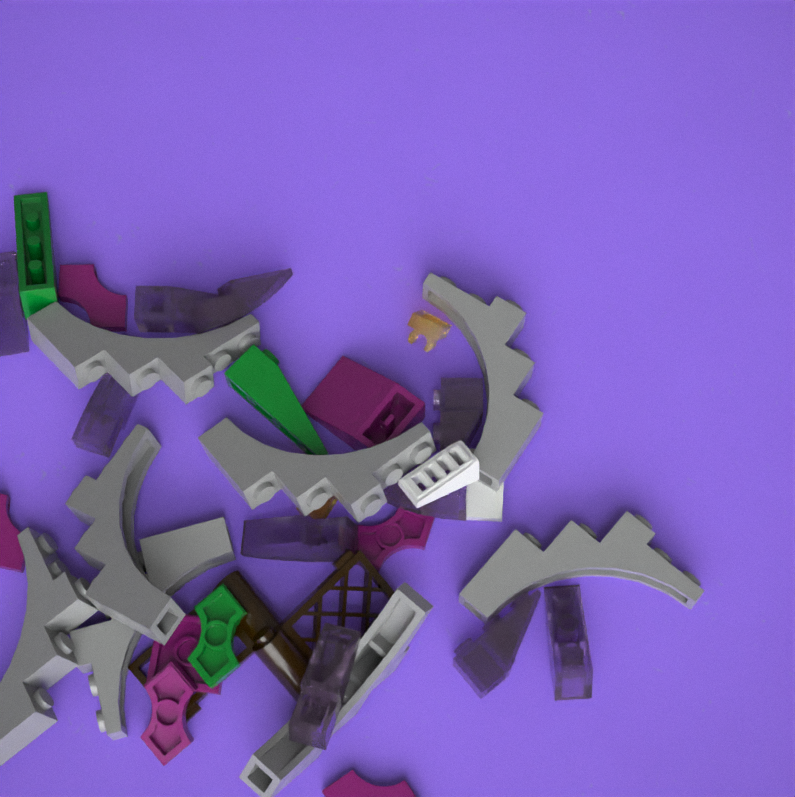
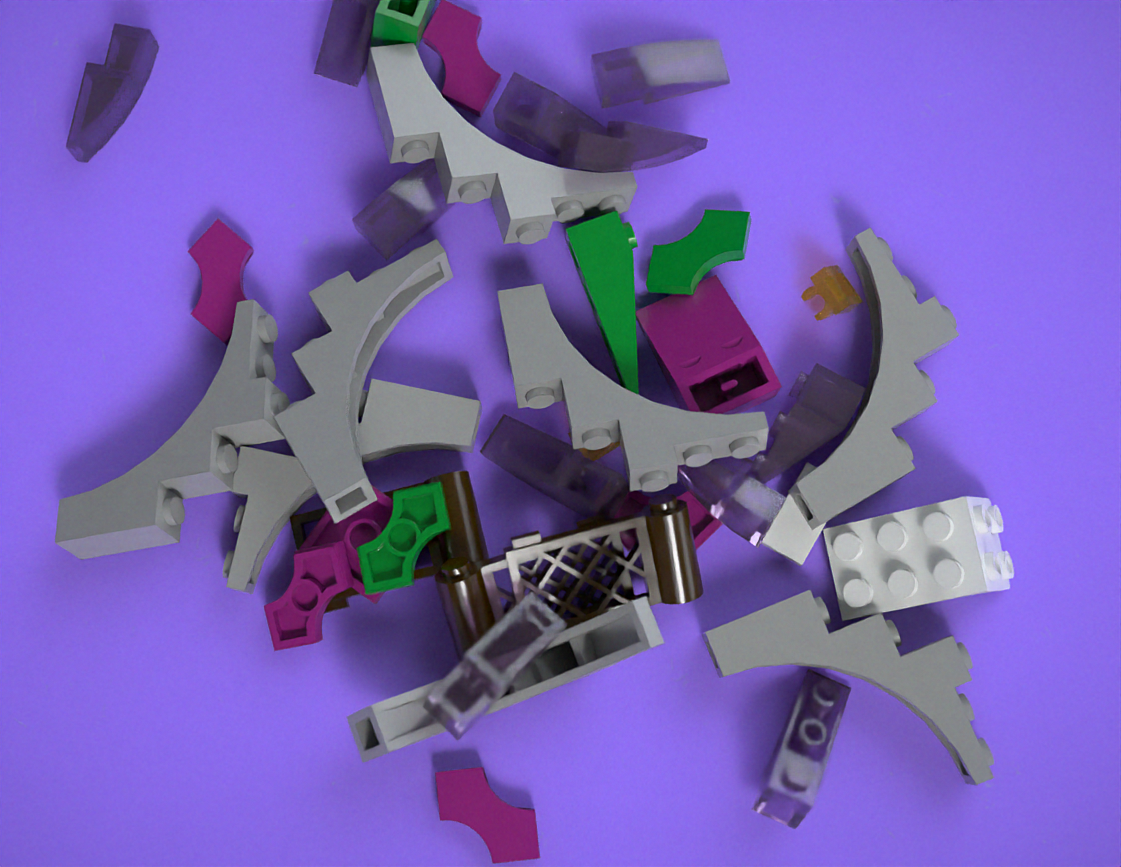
camera: 25 degrees right, 10 degrees up
(233, 242) = (658, 71): none -> clear purple slope
(317, 358) = (682, 264): none -> green tile
(398, 549) = (664, 551): none -> dark brown piece
(455, 458) = (772, 468): white slope -> none
(492, 655) = (711, 720): clear purple slope -> none
(576, 471) = (918, 557): none -> white bracket

